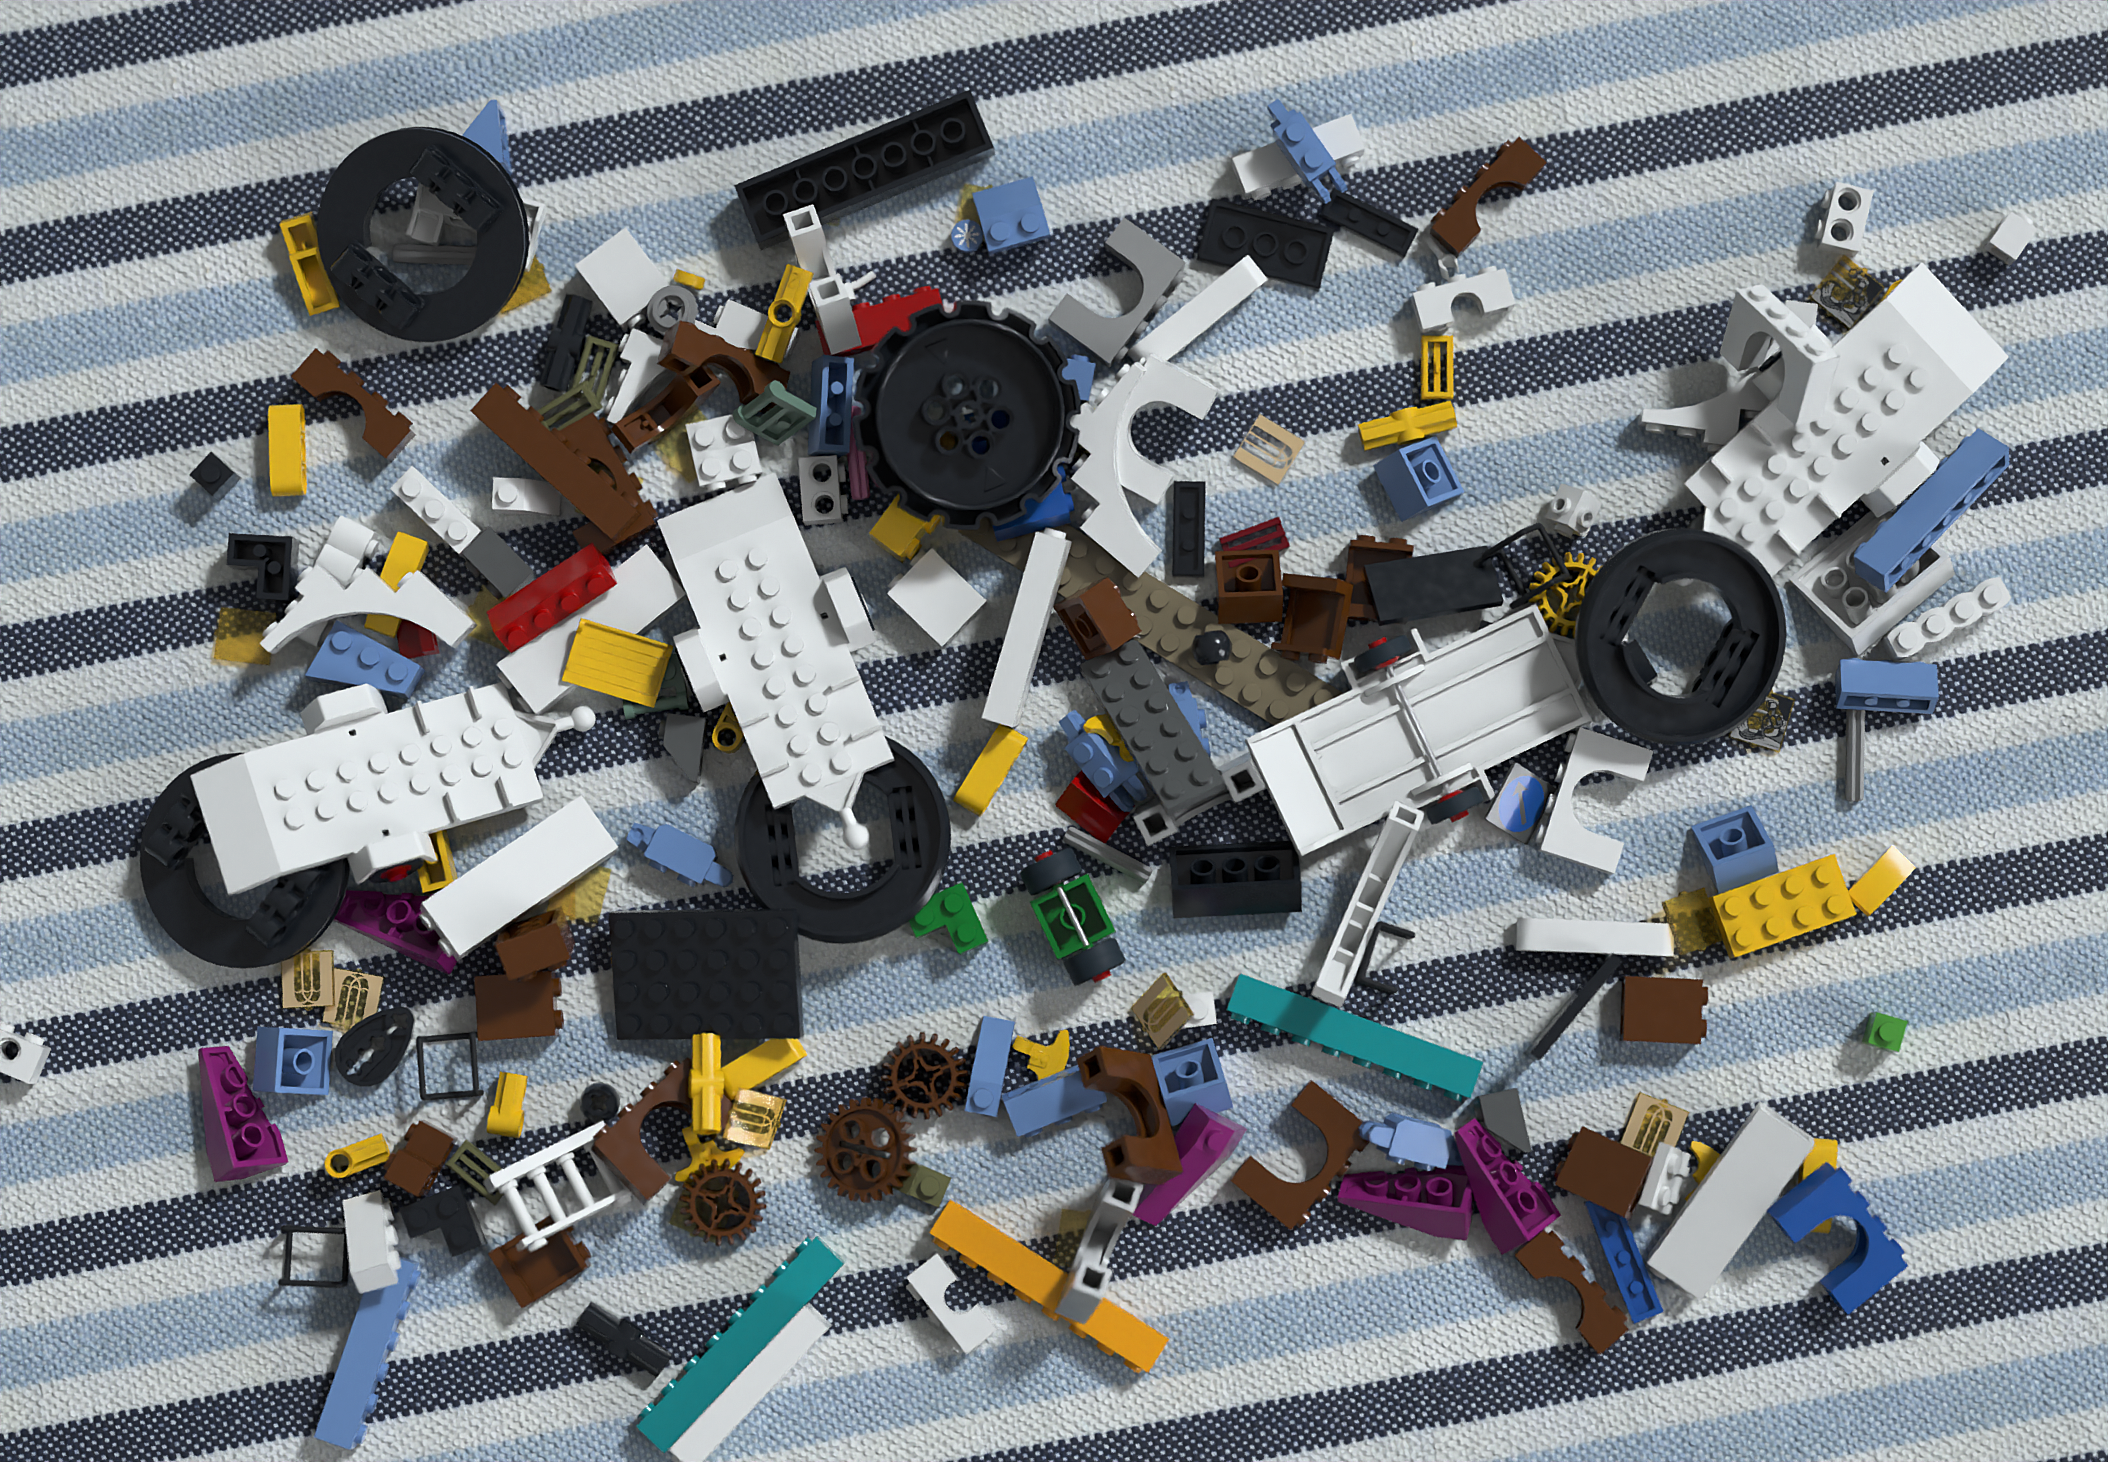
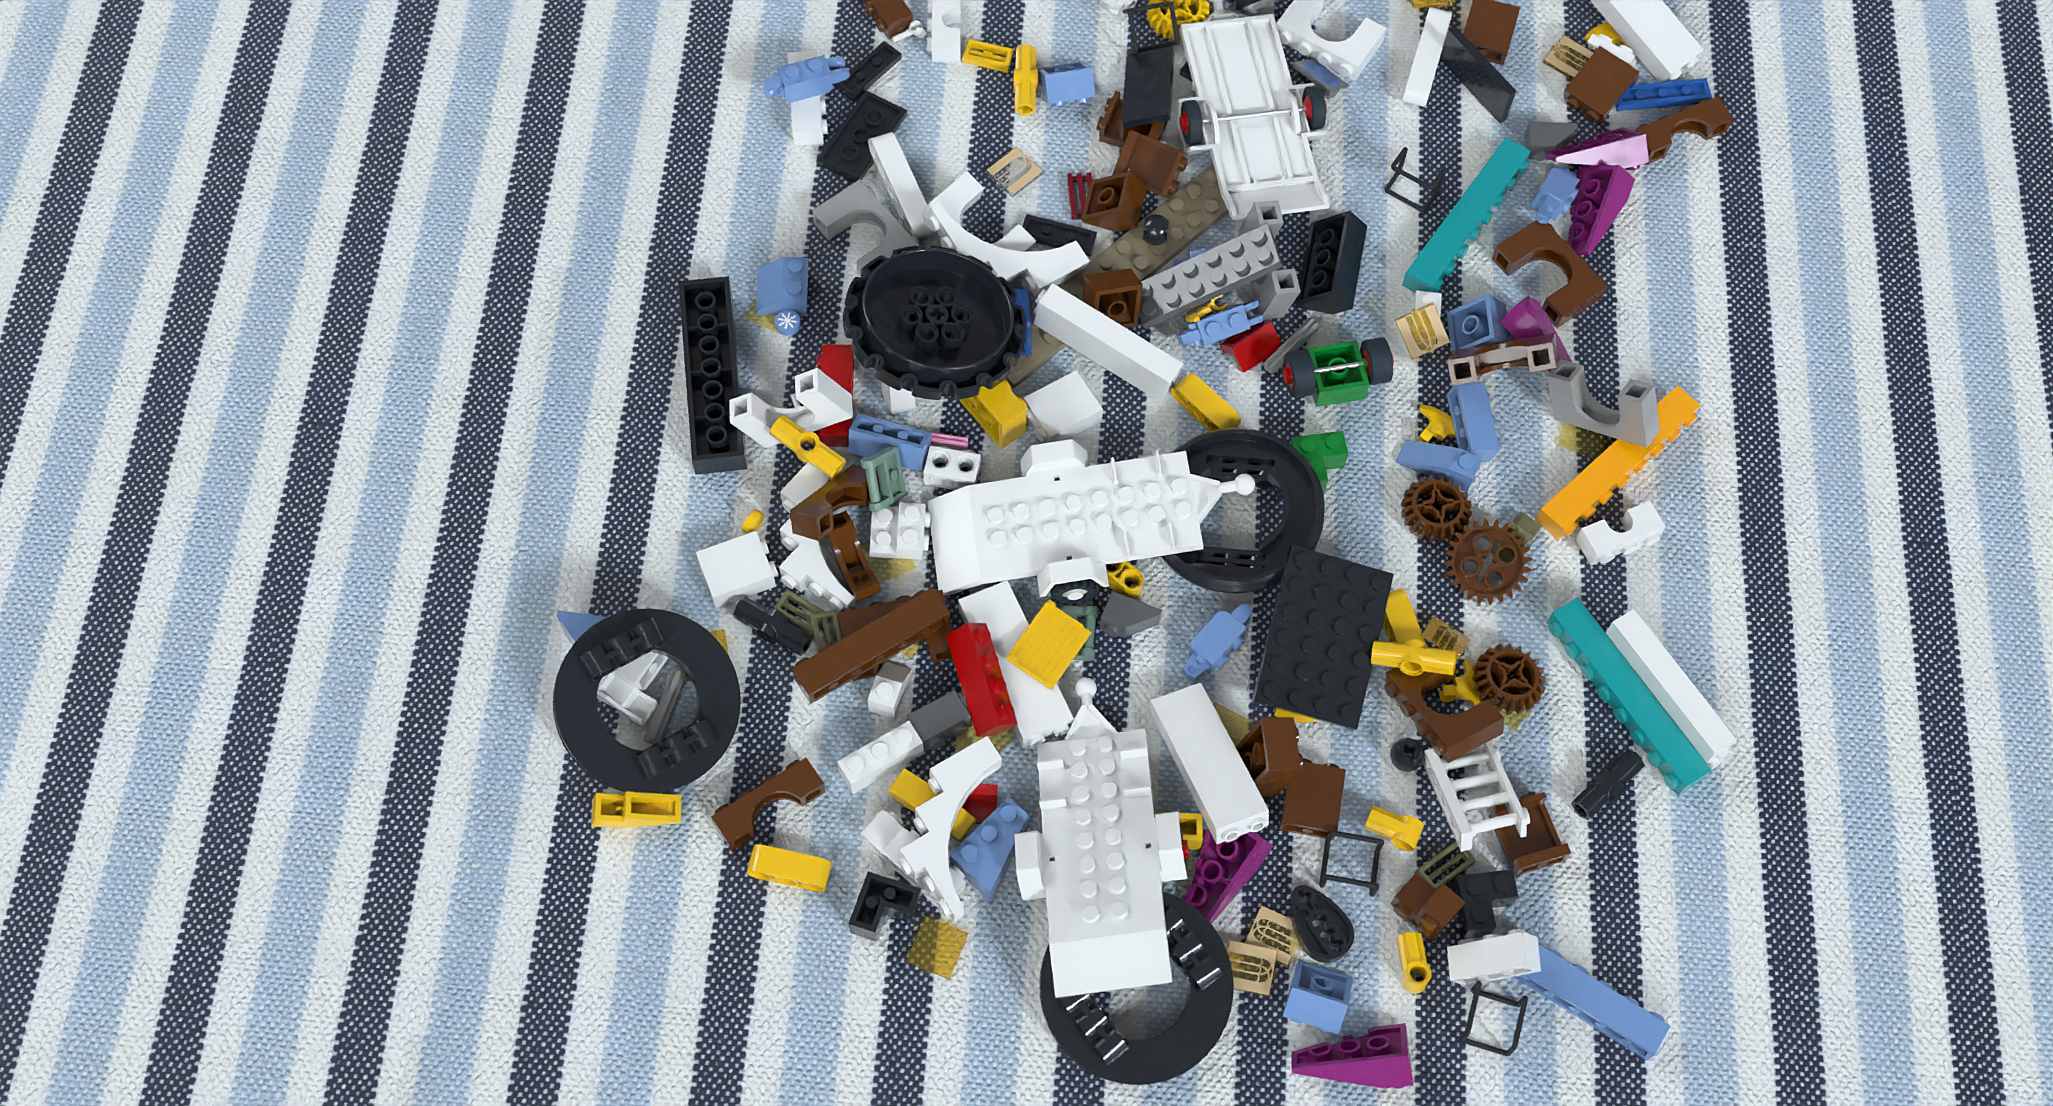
camera: 85 degrees left, 20 degrees down
(215, 476) = (792, 932): black brick -> none
(659, 307) = (766, 525): light grey gear -> none
(1367, 903) = (1347, 164): white arch -> none

